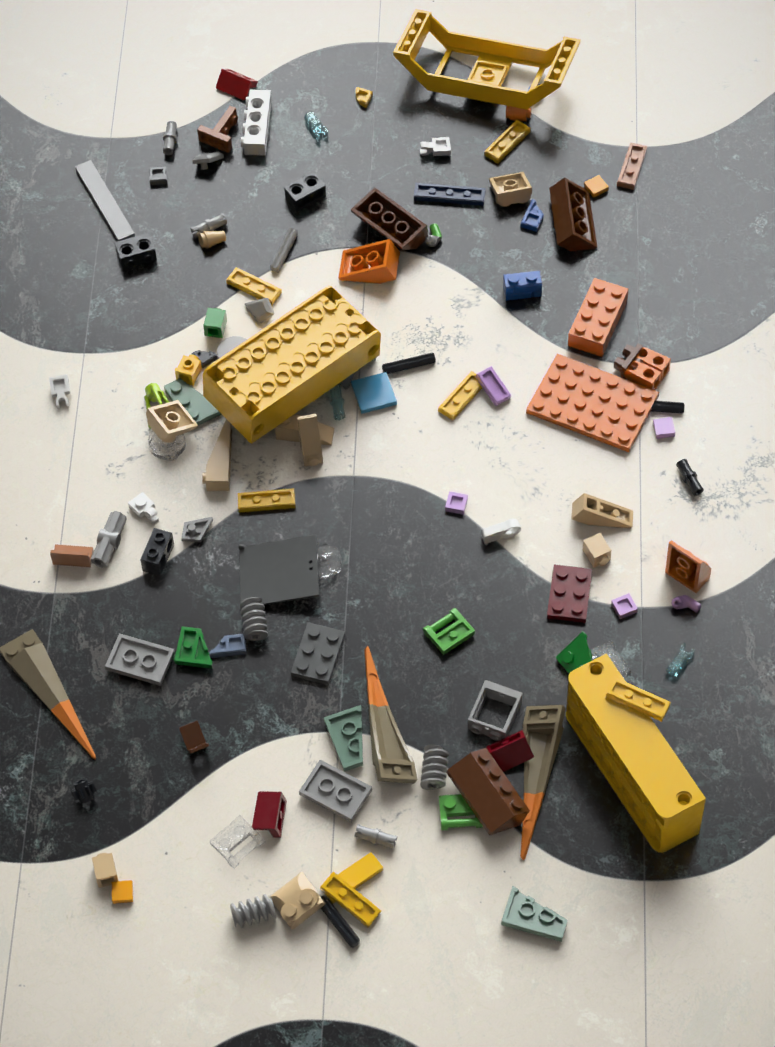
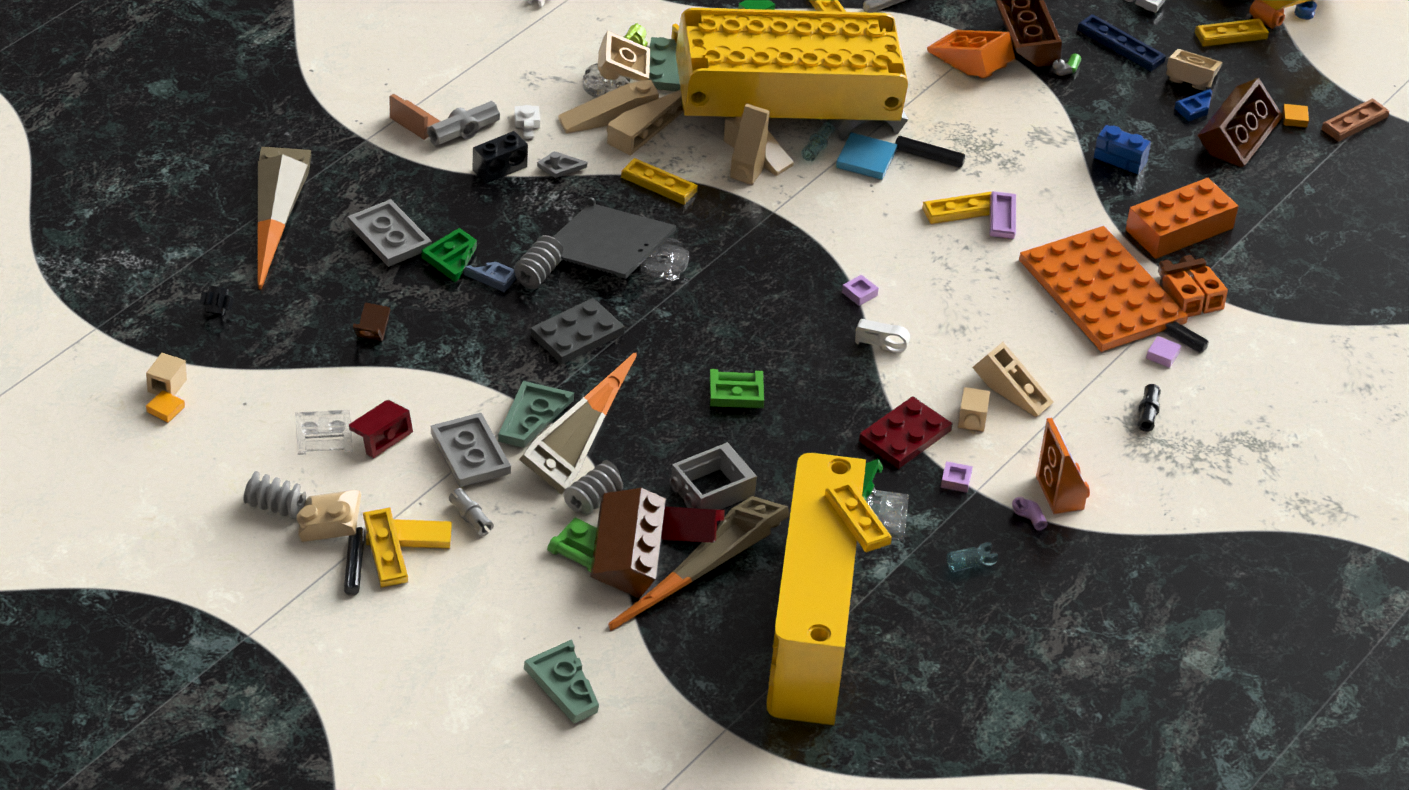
camera: 30 degrees right, 15 degrees down
(189, 463) = (608, 107): none -> tan slope

